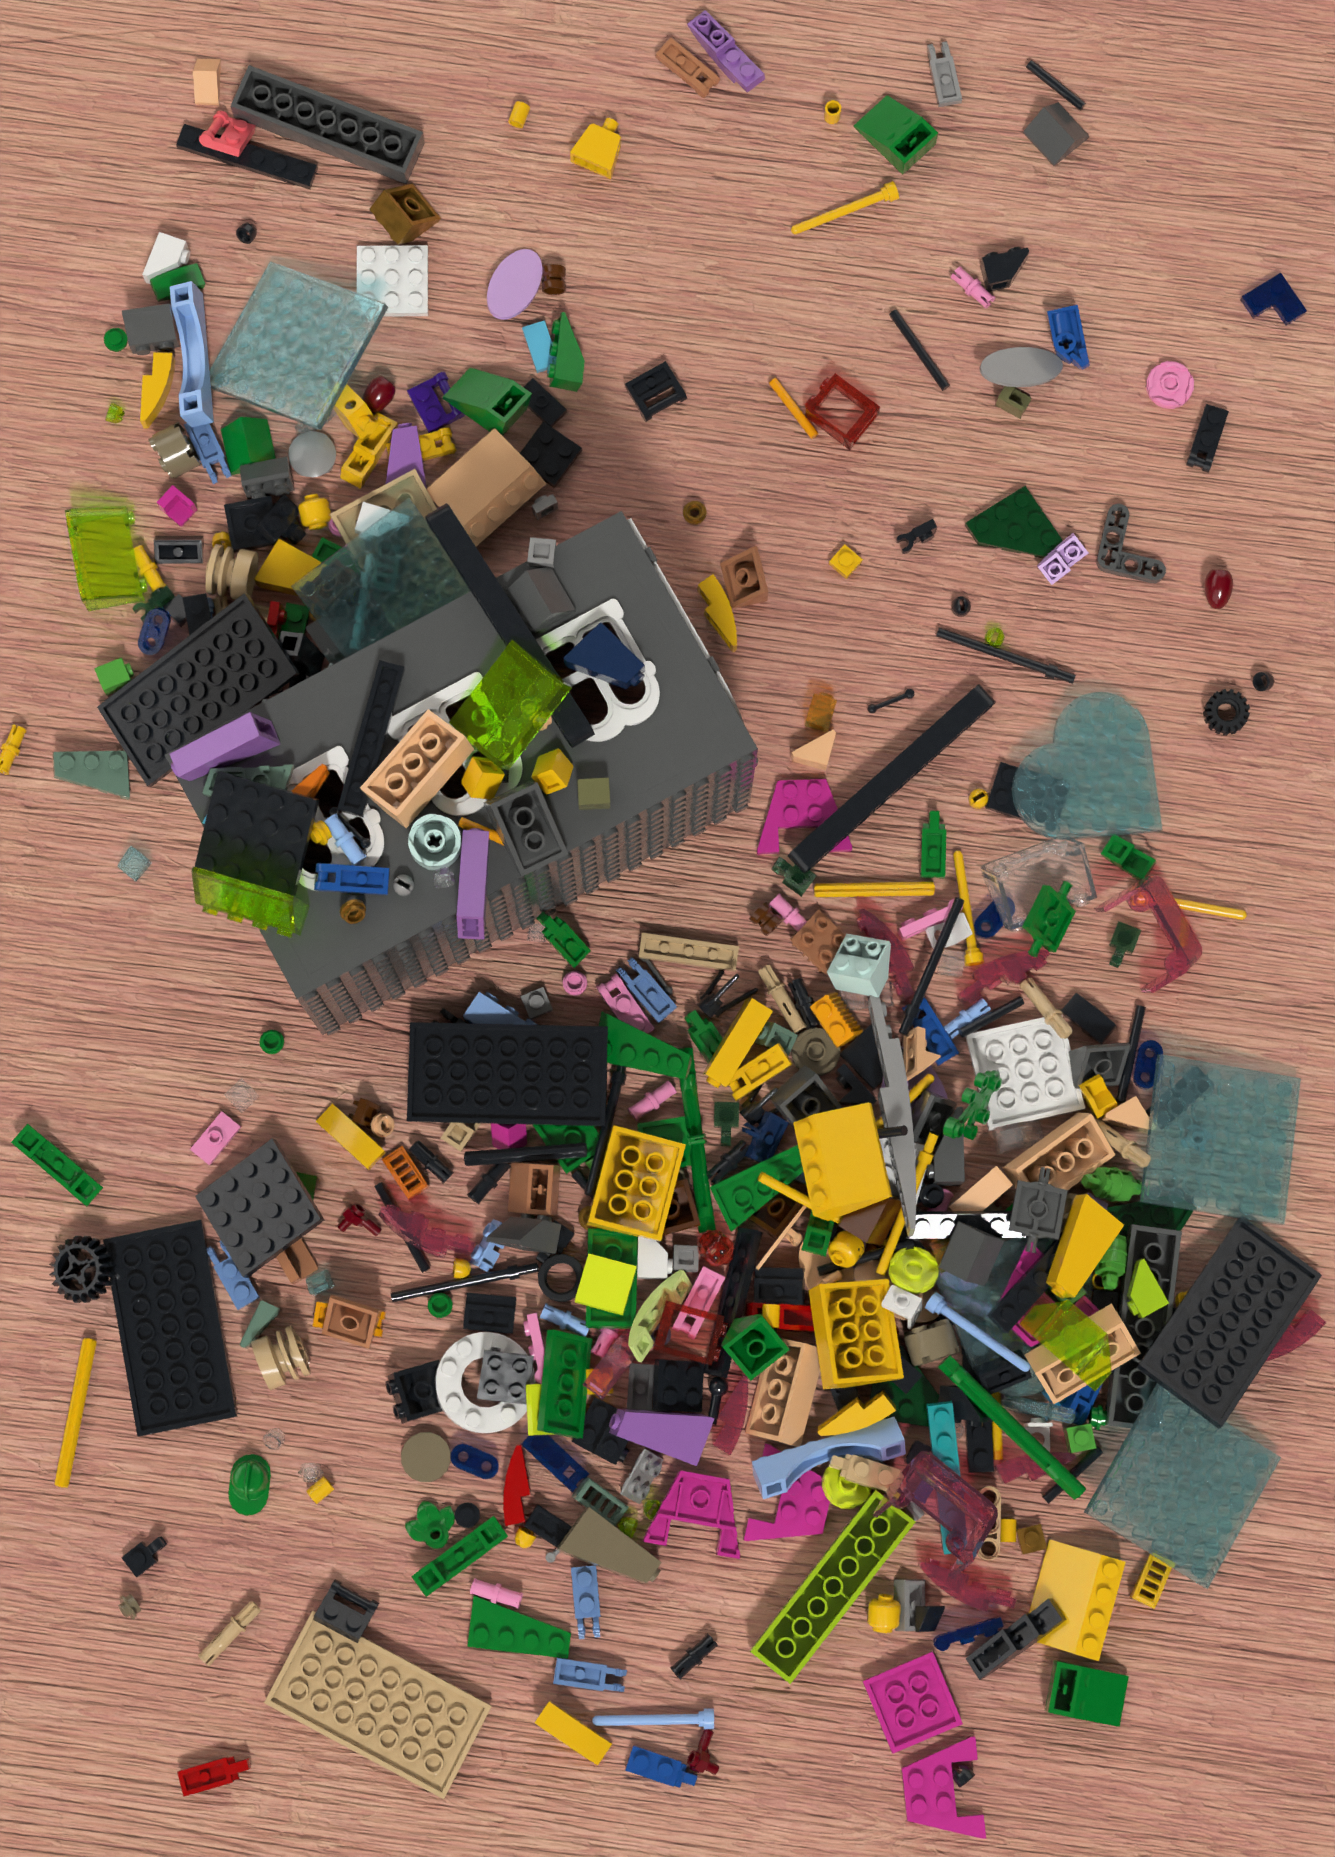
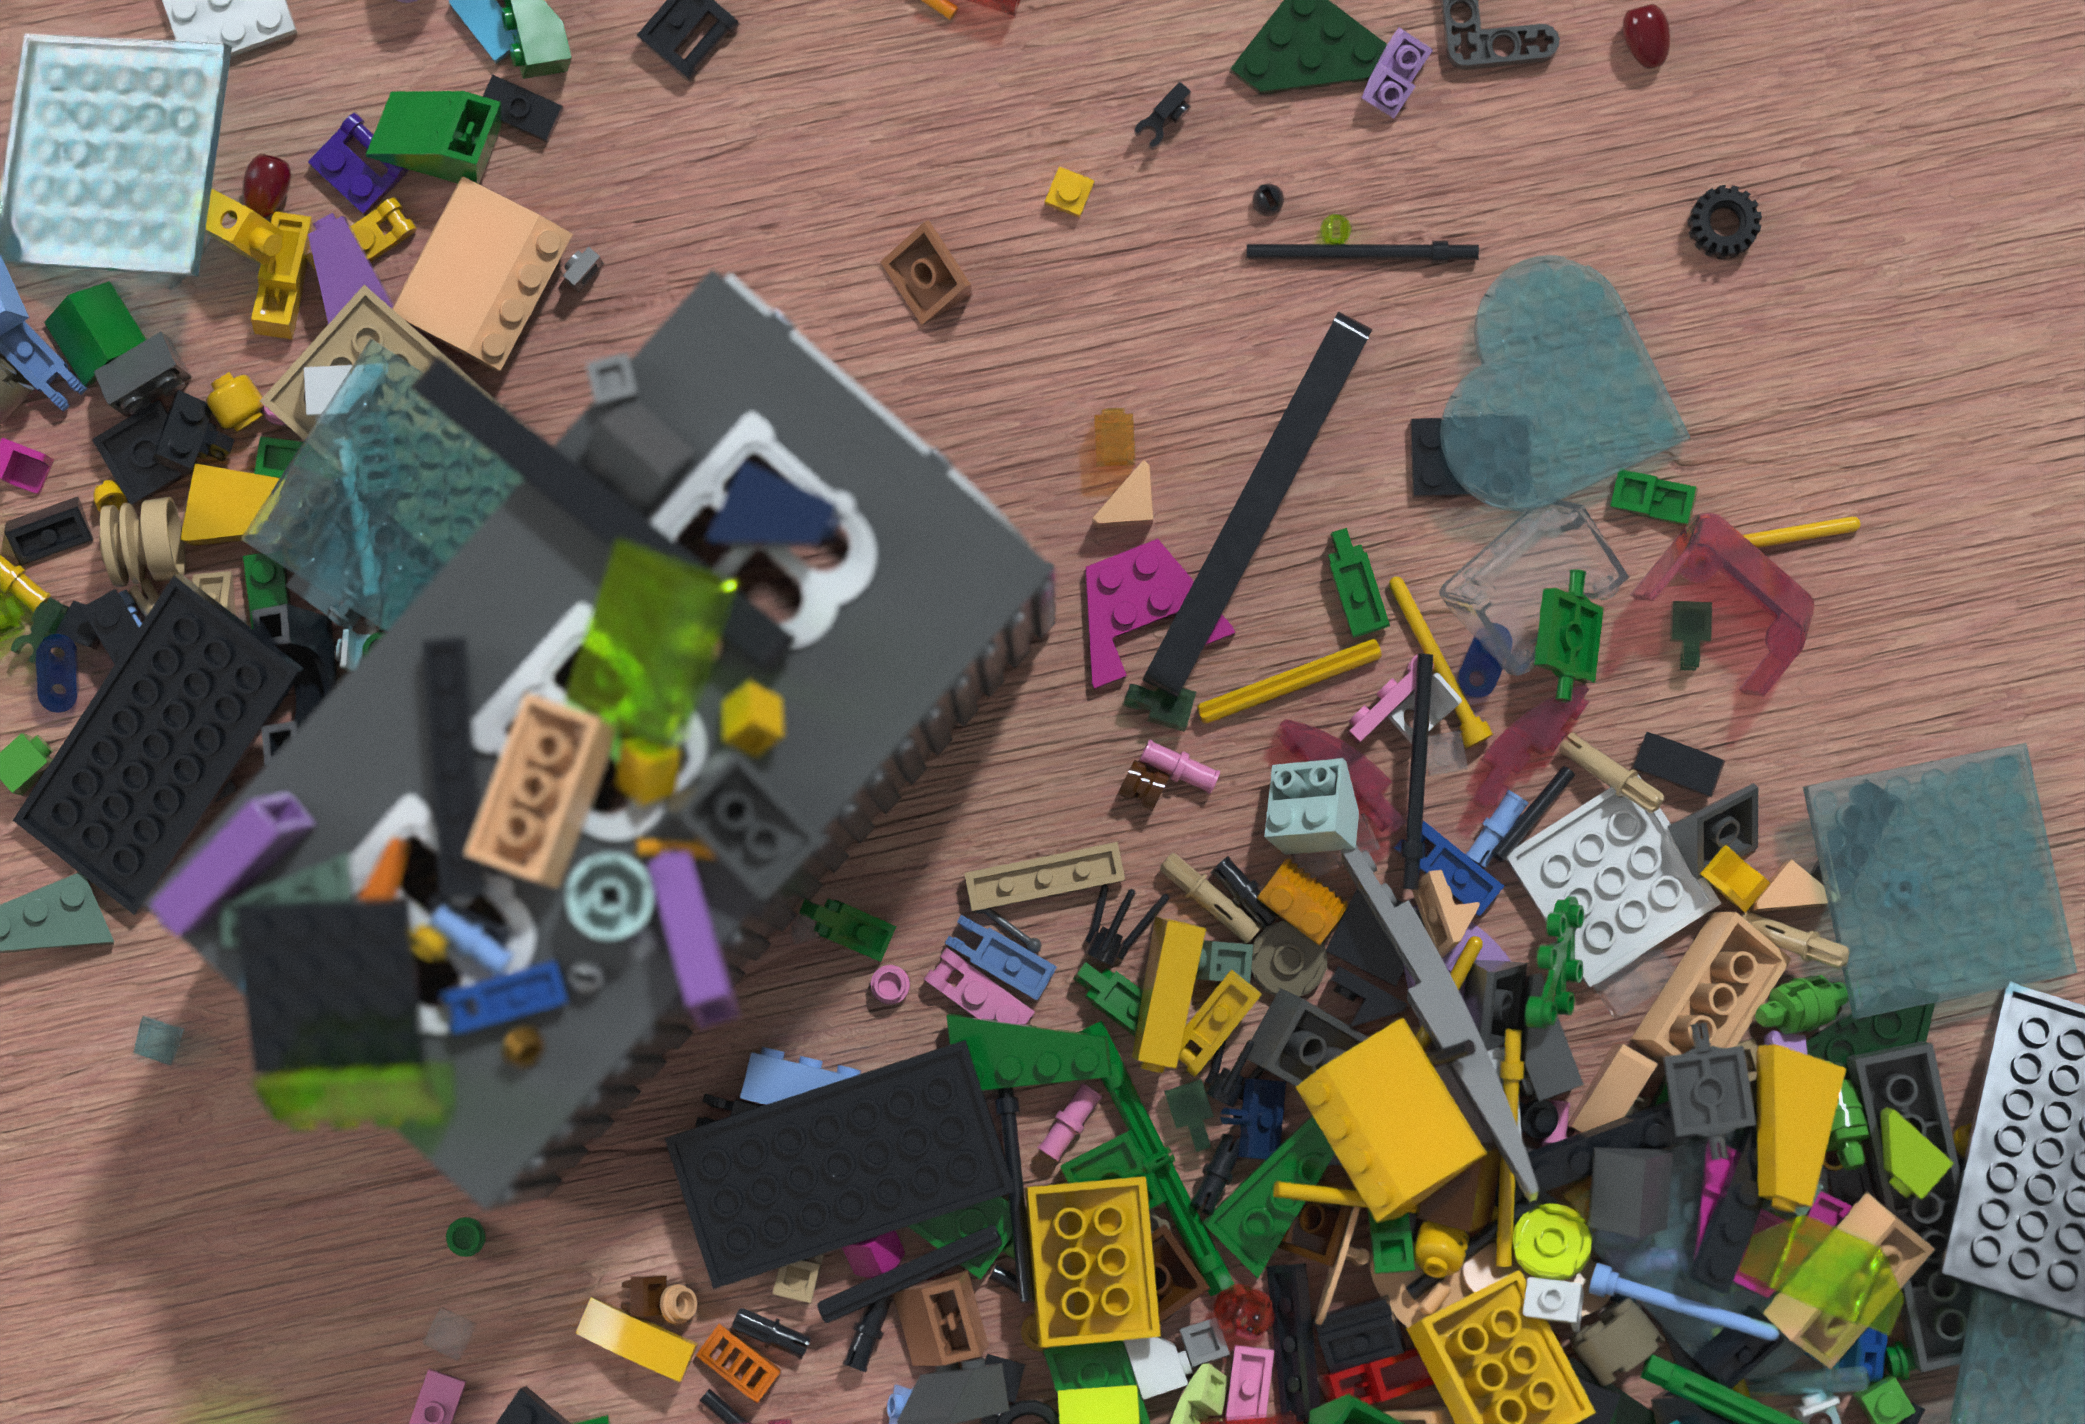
camera: 15 degrees left, 5 degrees up
(276, 617) = (236, 588): red plate -> none
(312, 454) = (198, 312): light grey dish -> none
(536, 1003) = (843, 1035): light grey plate -> none
(550, 453) = (561, 183): black plate -> none
(593, 793) = (828, 731): olive panel -> none
(694, 505) = (809, 186): pearl gold plate -> none
(719, 611) = (905, 337): yellow slope -> none
(771, 1314) = (1363, 1385): yellow hinge -> none
(818, 941) = (1235, 790): nougat hinge -> none
(909, 694) = (1237, 362): black hinge -> none
(979, 803) = (1404, 490): yellow hinge -> none
(1133, 1041) = (1758, 777): black bar -> none
(1145, 1064) = (1789, 802): clear blue plate -> none
(1261, 683) = (1763, 155): black hinge -> none

